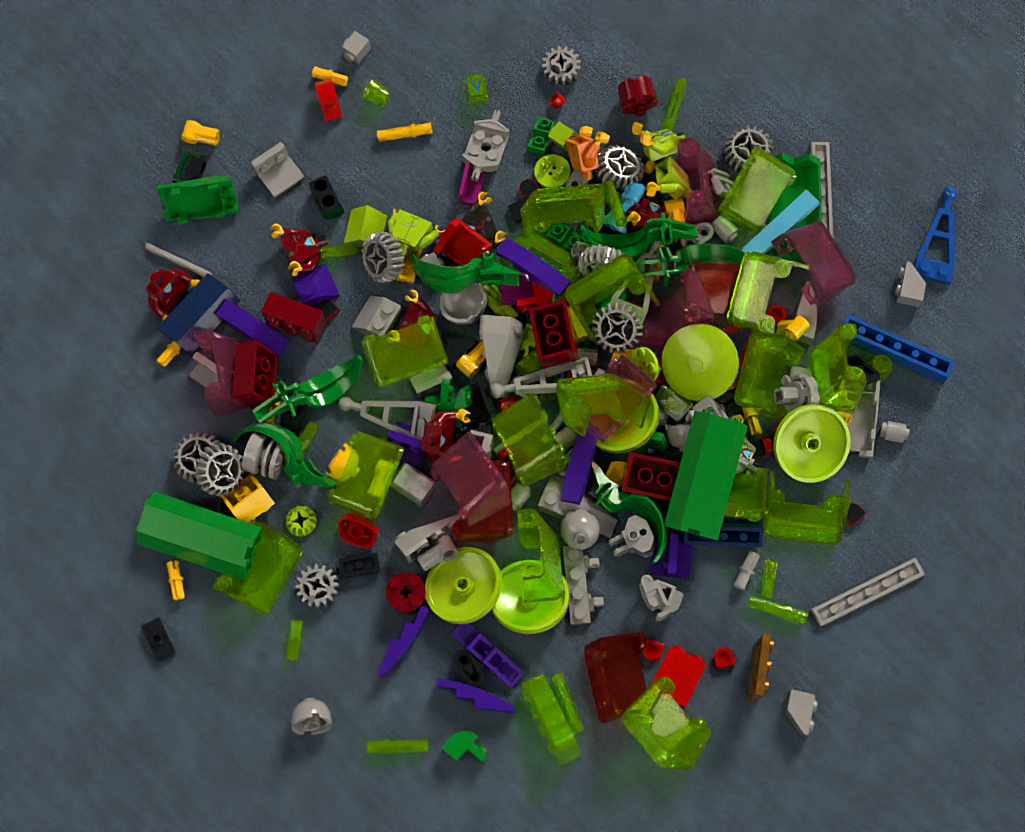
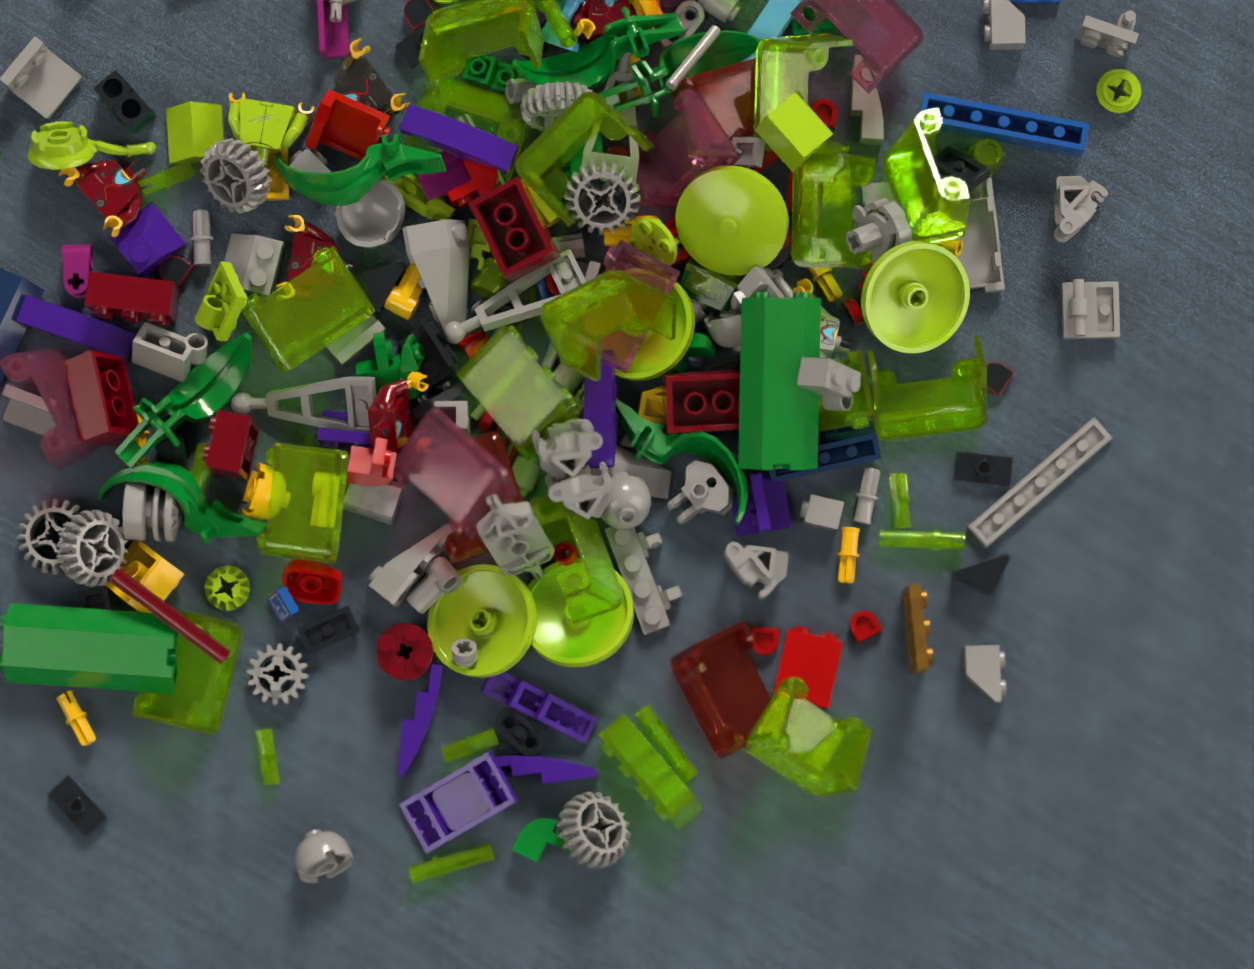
camera: 20 degrees left, 10 degrees up
(256, 526) = (170, 616): none -> dark red axle
(263, 288) = (77, 263): none -> magenta piece
(281, 213) = (66, 147): none -> lime piece
(306, 357) = (168, 351): none -> light grey hinge
(329, 425) = (231, 445): none -> dark red brick
(334, 540) = (283, 604): none -> blue tile
(350, 293) = (202, 238): none -> light grey axle
(350, 335) = (222, 303): none -> lime plate
(414, 705) = (458, 802): none -> slope
(417, 461) = (371, 466): none -> brick
(432, 668) = (469, 745): none -> clear neon green axle
(445, 603) = (458, 652): none -> light grey bush
(497, 522) = (512, 525): none -> light grey plate
(505, 746) = (594, 830): none -> light grey gear
(528, 554) = (561, 556): none -> red hinge
(550, 481) = (566, 447): none -> light grey piece
(553, 512) = (584, 492): none -> light grey piece
(699, 255) = (693, 57): none -> light grey bar
(713, 573) = (822, 512): none -> light grey brick
(723, 321) = (749, 151): none -> light grey bracket
(724, 606) = (848, 555): none -> yellow axle
(741, 482) = (830, 380): none -> light grey hinge
(755, 313) = (793, 131): none -> lime slope
(793, 328) = (851, 132): yellow piece -> none
(814, 645) = (984, 575): none -> black slope
(830, 572) = (983, 468): none -> black plate
(894, 431) = (1027, 245): light grey brick -> none
(928, 485) = (1090, 310): none -> light grey plate
(933, 413) = (1074, 204): none -> light grey piece
(975, 340) = (1130, 87): none -> lime gear
(979, 309) = (1117, 38): none -> light grey plate

